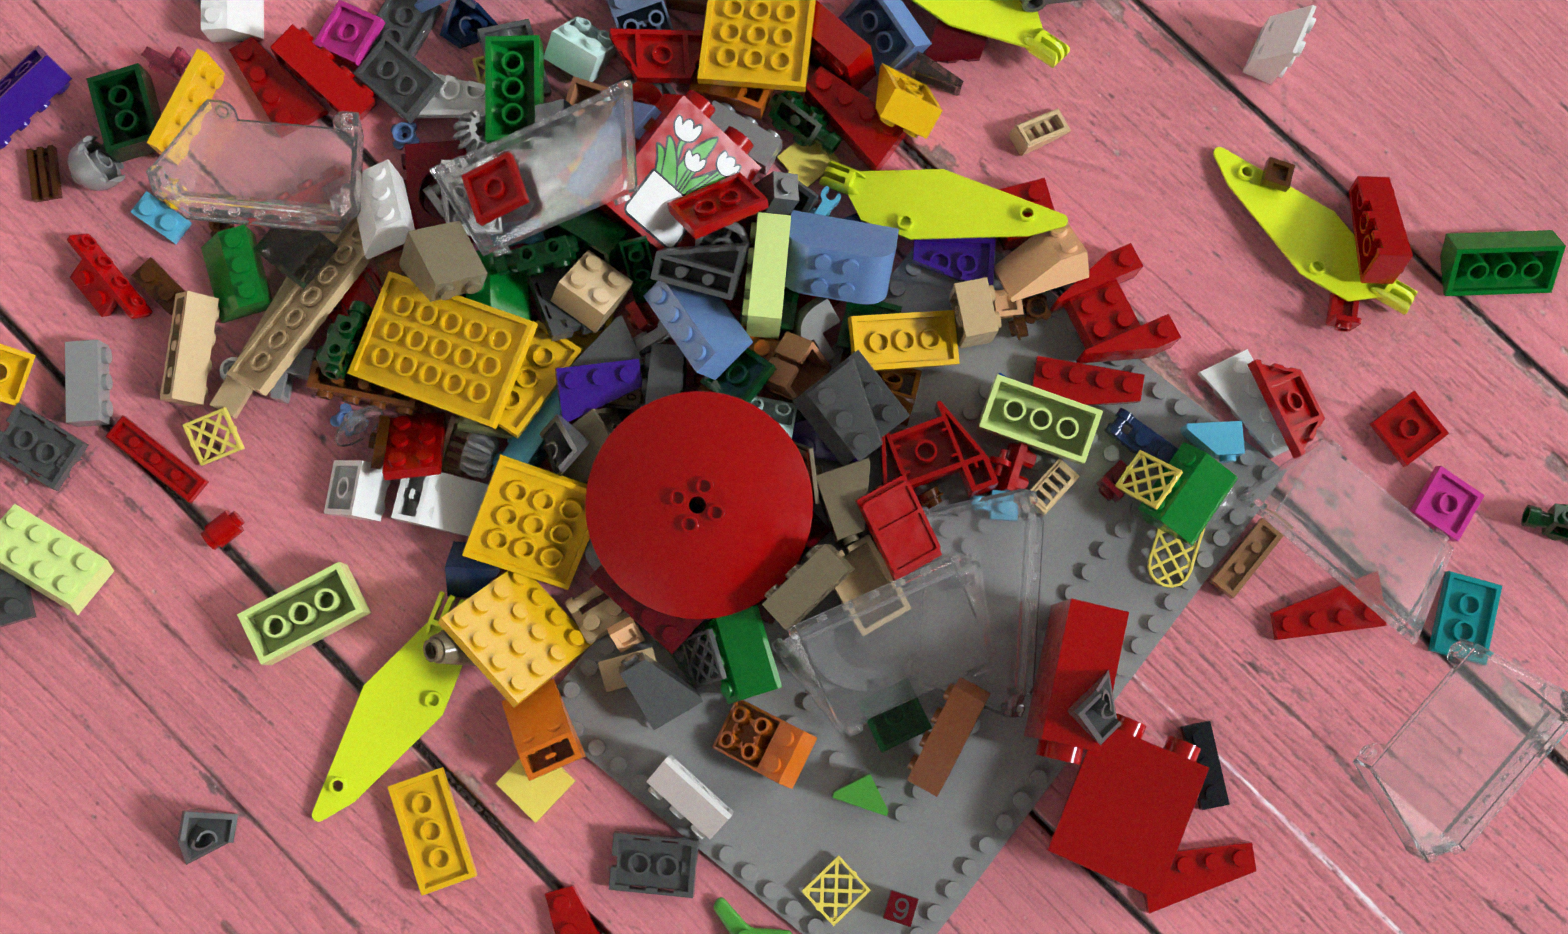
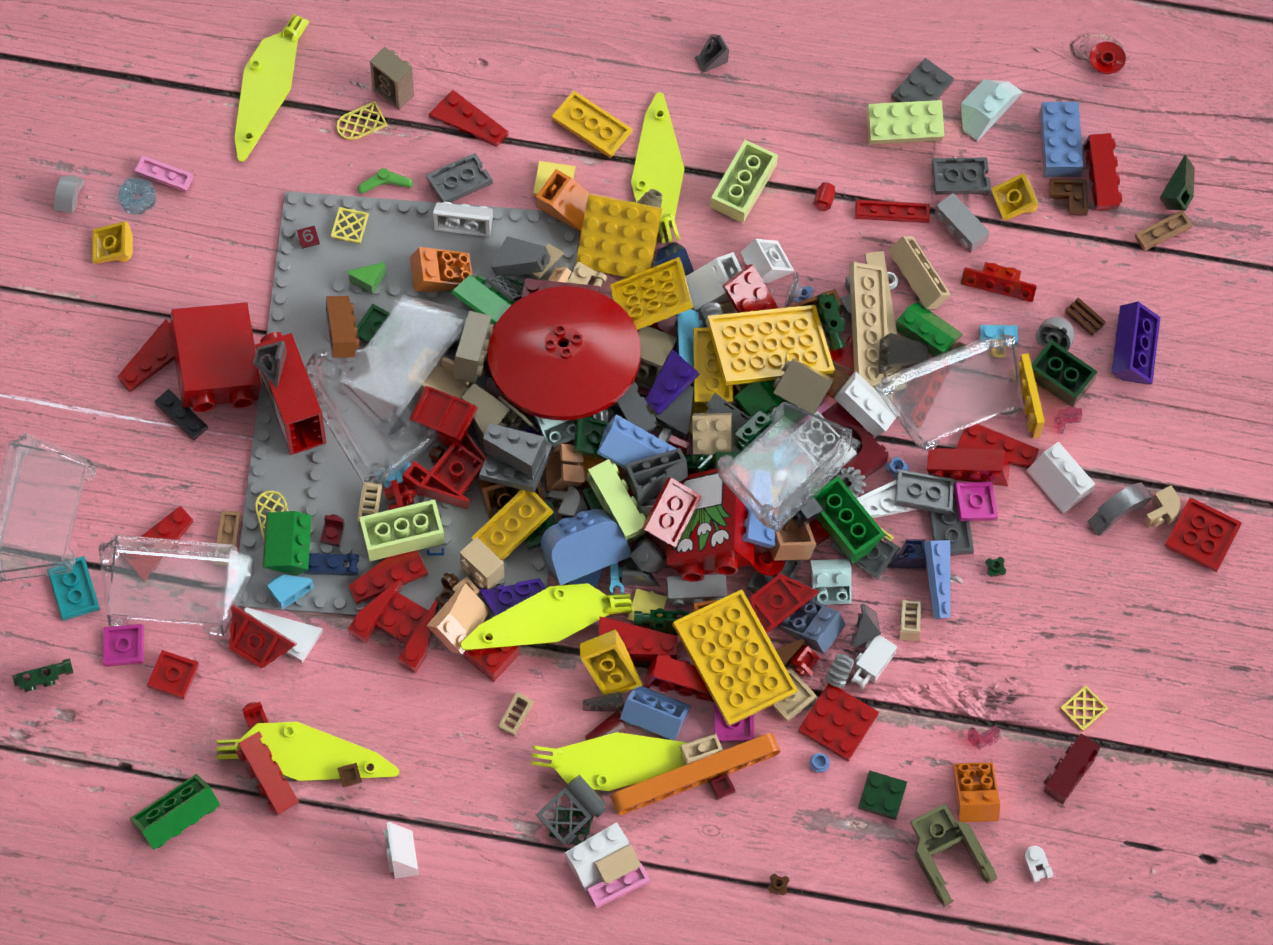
camera: 145 degrees right, 15 degrees down
(158, 284) = (967, 299): reddish brown plate -> none
(196, 443) = (886, 235): light yellow window -> none
(379, 441) = (772, 287): reddish brown plate -> none
(495, 188) = (806, 443): red plate -> none
(562, 443) = (661, 339): dark grey slope -> none
(1158, 463) = (315, 533): light yellow window -> none

